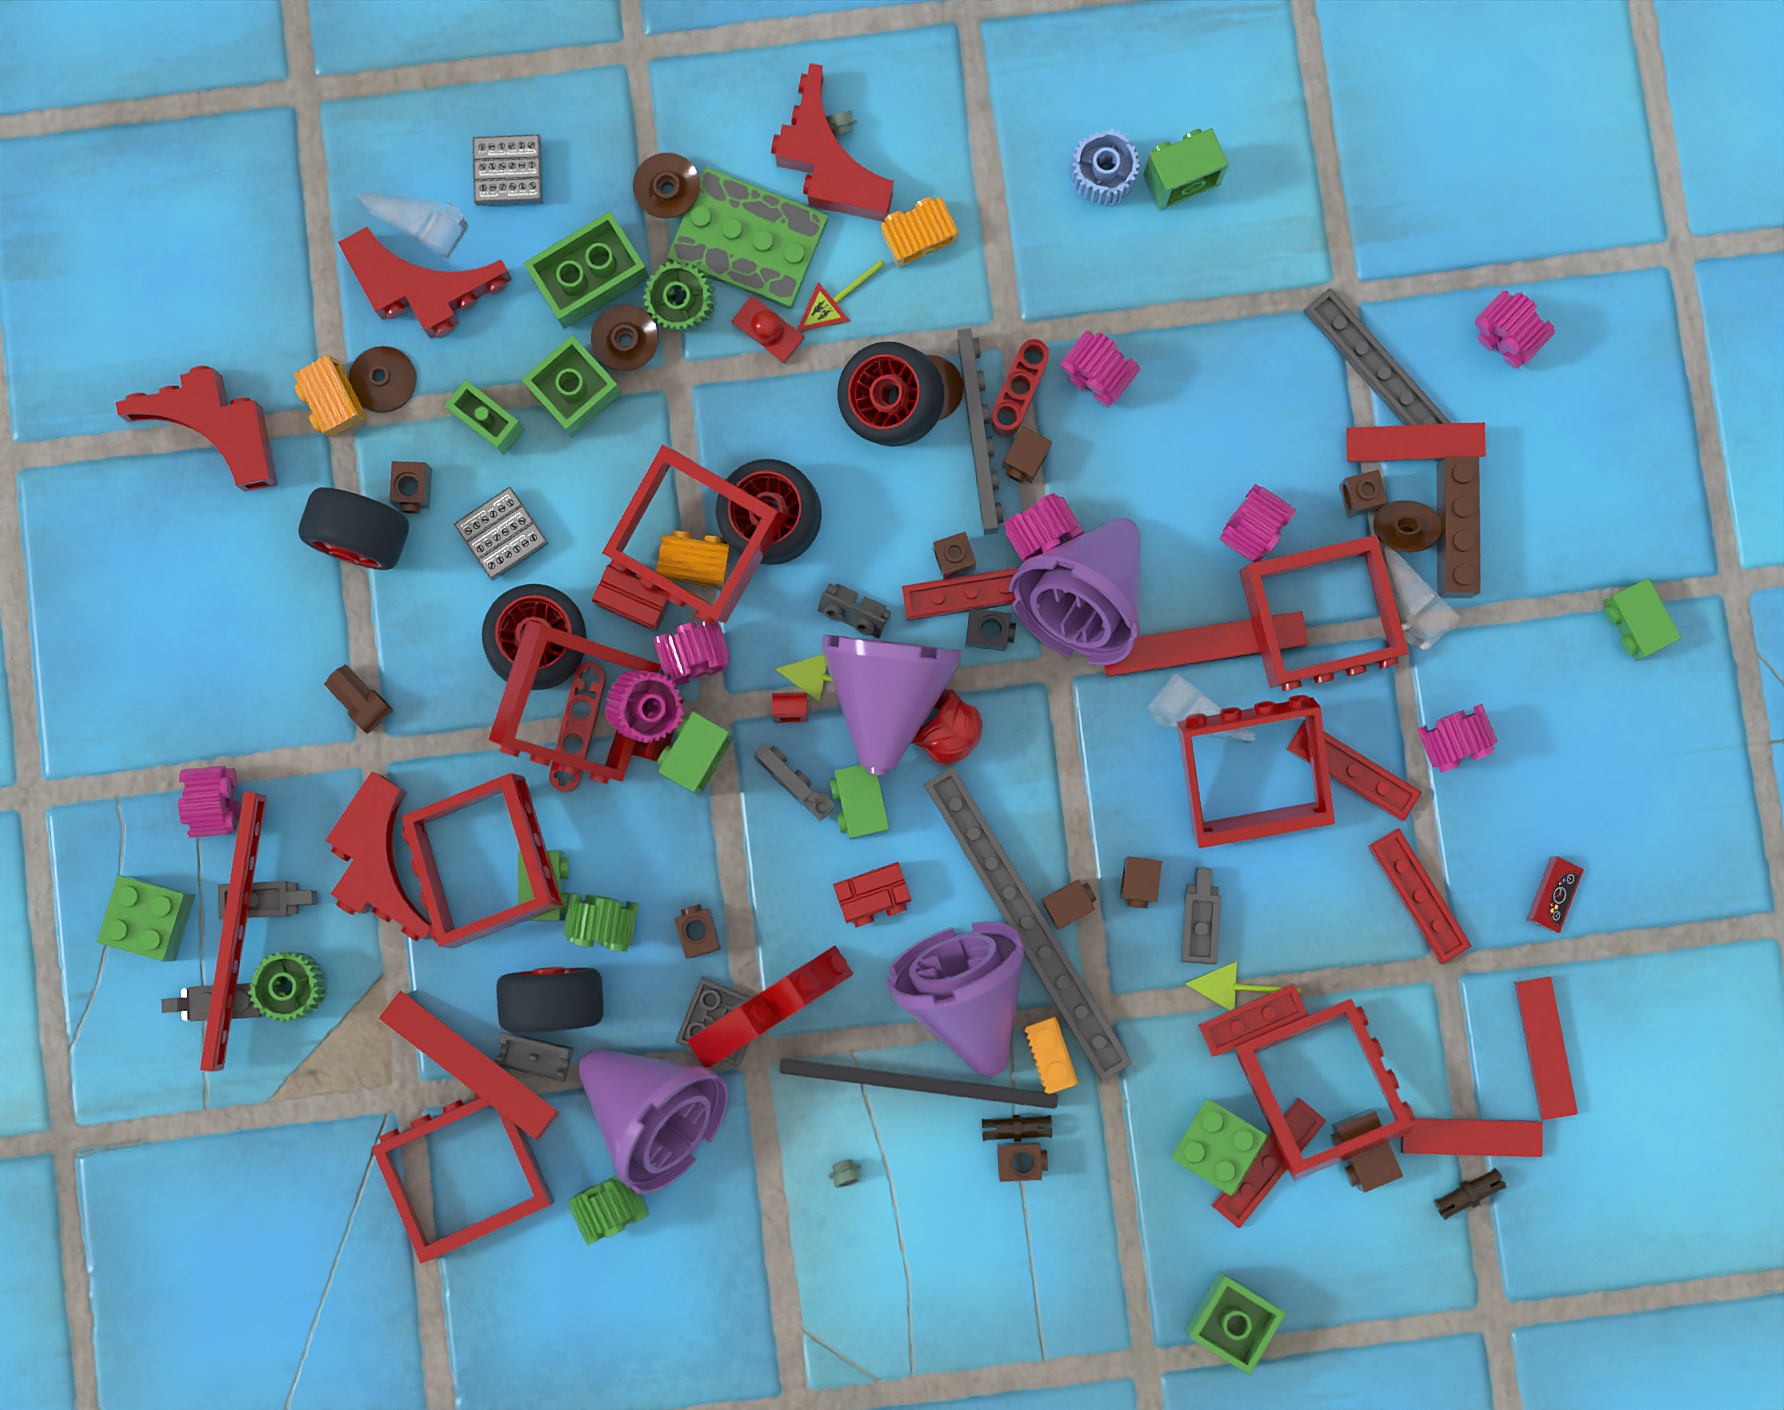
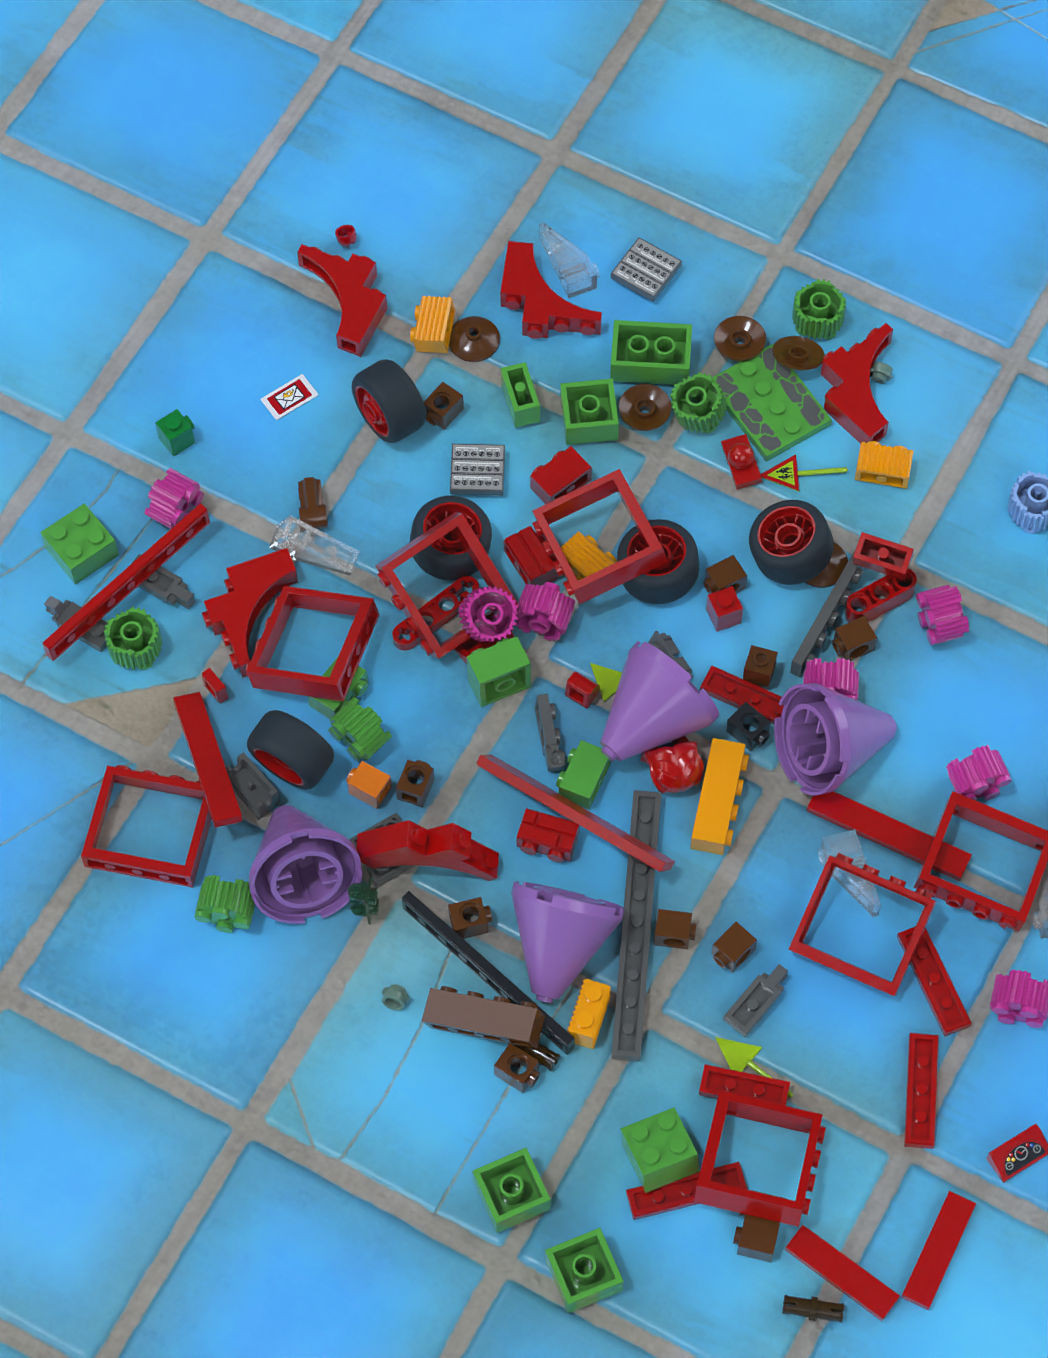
camera: 35 degrees right, 20 degrees down
(148, 717) = (175, 432): none -> green brick
(153, 345) = (350, 233): none -> red hinge
(236, 585) = (289, 397): none -> sticker
(396, 745) = (313, 546): none -> clear slope
(411, 974) = (214, 685): none -> red tile
(594, 481) = (560, 476): none -> red brick
(651, 968) = (368, 784): none -> orange brick
(730, 111) = (818, 310): none -> bright green brick
(740, 161) = (798, 353): none -> reddish brown dish
(744, 1101) = (364, 899): none -> clear green hinge
(847, 479) = (724, 575): none -> reddish brown brick
(851, 1052) = (460, 910): none -> reddish brown brick
(872, 515) = (724, 608): none -> red brick
(884, 853) = (575, 813): none -> red tile
(954, 1139) = (483, 1017): none -> reddish brown brick
(1002, 350) = (883, 556): none -> red brick
(1011, 727) = (718, 795): none -> light orange brick
(1108, 1293) = (511, 1190): none -> bright green brick

